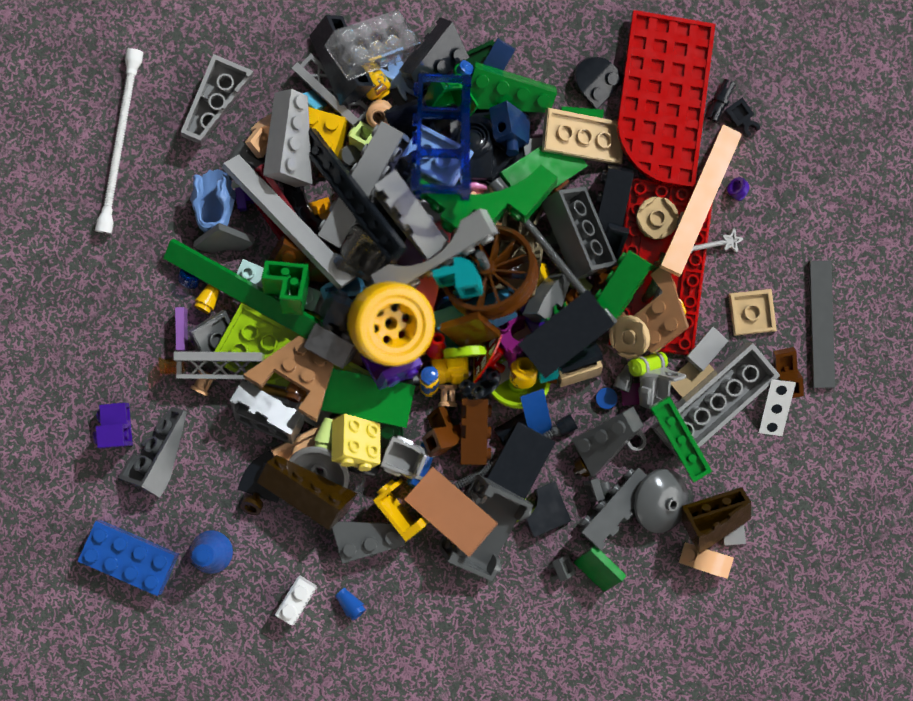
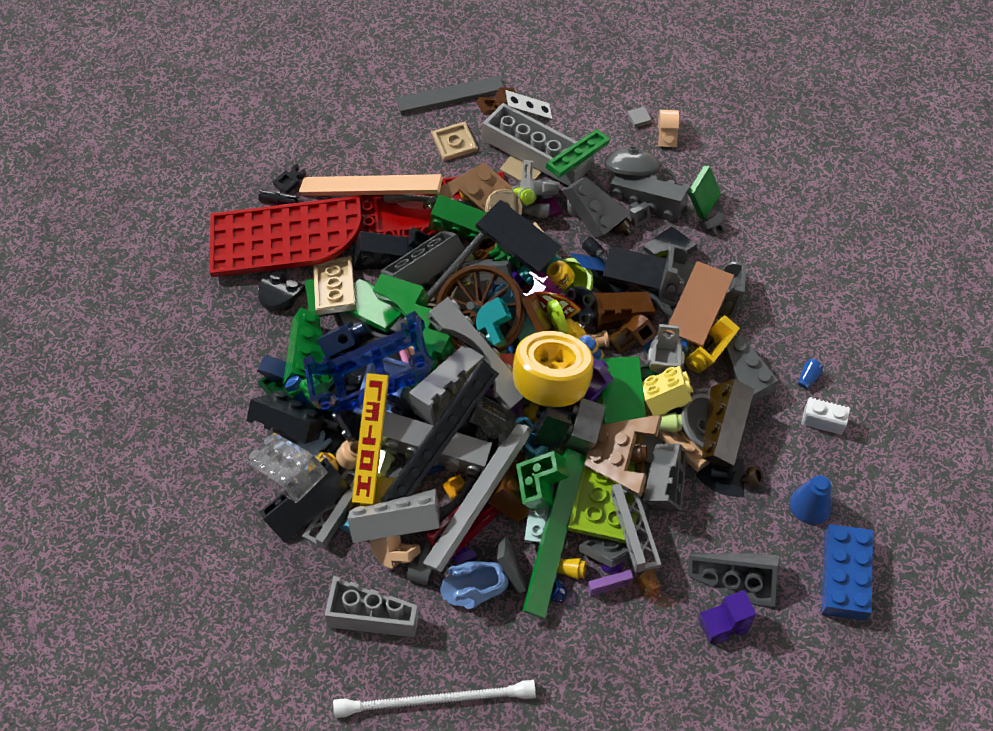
camera: 100 degrees left, 25 degrees down
(202, 385) = (661, 549): light nougat bush -> none
(369, 127) = (370, 438): none -> yellow tile
(606, 398) = (559, 225): blue tile -> none
(657, 218) = (393, 218): tan tile -> none
(706, 349) = (498, 163): light grey tile -> none
(715, 517) = (632, 124): dark brown wedge -> none
(728, 241) = (400, 167): light grey piece -> none
(738, 188) = (352, 168): dark purple tile -> none

